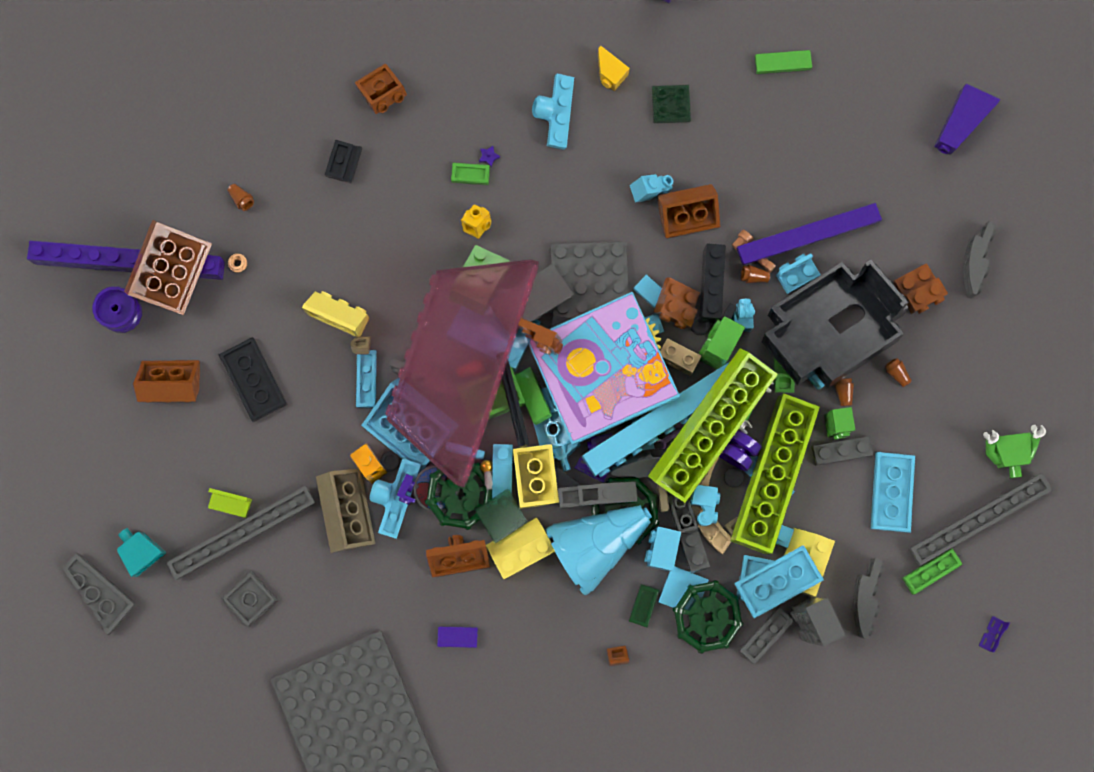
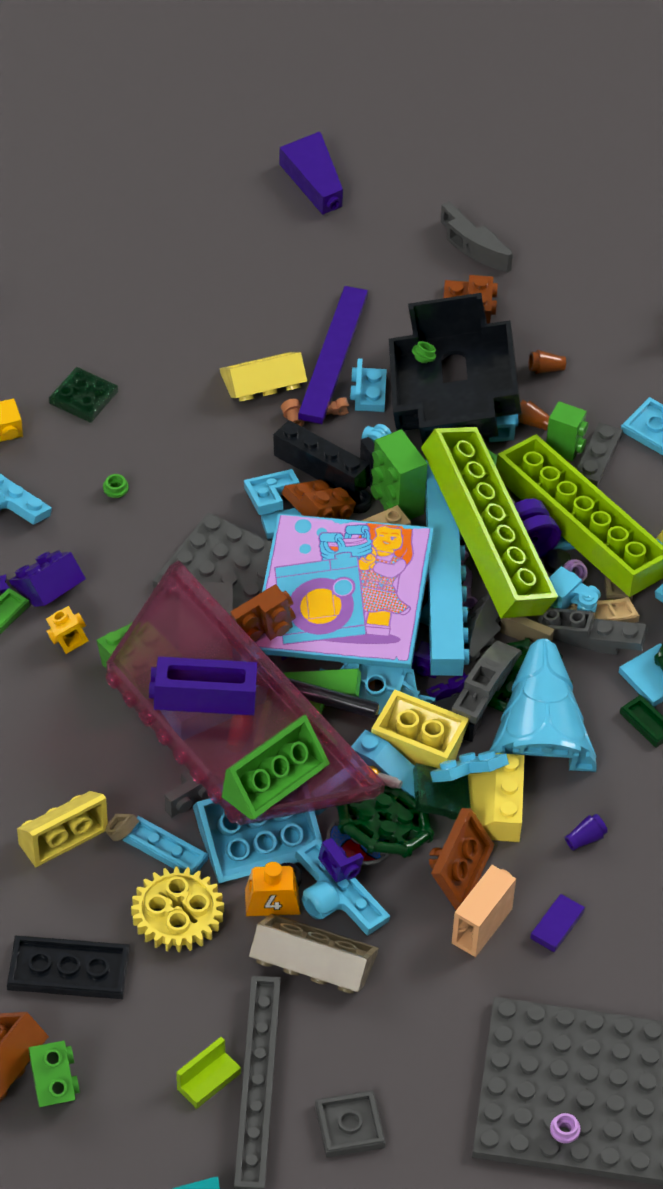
camera: 55 degrees left, 30 degrees down
(170, 420) = (53, 1074): none -> bright green brick
(304, 726) = (568, 1121): none -> lavender plate
(342, 417) = (177, 909): none -> light yellow gear
(427, 420) = (274, 769): none -> bright green slope
(429, 593) = (483, 910): none -> light nougat brick
(446, 343) = (204, 685): none -> dark purple piece
(509, 182) = (48, 577): none -> dark purple slope
(526, 521) = (468, 764): none -> medium azure plate
(531, 617) = (587, 832): none -> dark purple cone
(609, 168) = (115, 486): none -> bright green plate
(649, 186) = (164, 455): medium azure brick -> none
(663, 548) = (595, 656): medium azure brick -> none
(667, 263) = (266, 490): none -> medium azure plate
(689, 210) = (220, 438): dark orange slope -> none
(730, 494) = (580, 568): none -> lavender plate
(754, 275) = (338, 424): dark orange cone -> none
(760, 202) = (264, 375): none -> light yellow slope
(783, 62) = (122, 279): bright green tile -> none
(845, 292) = (424, 352): none -> bright green plate

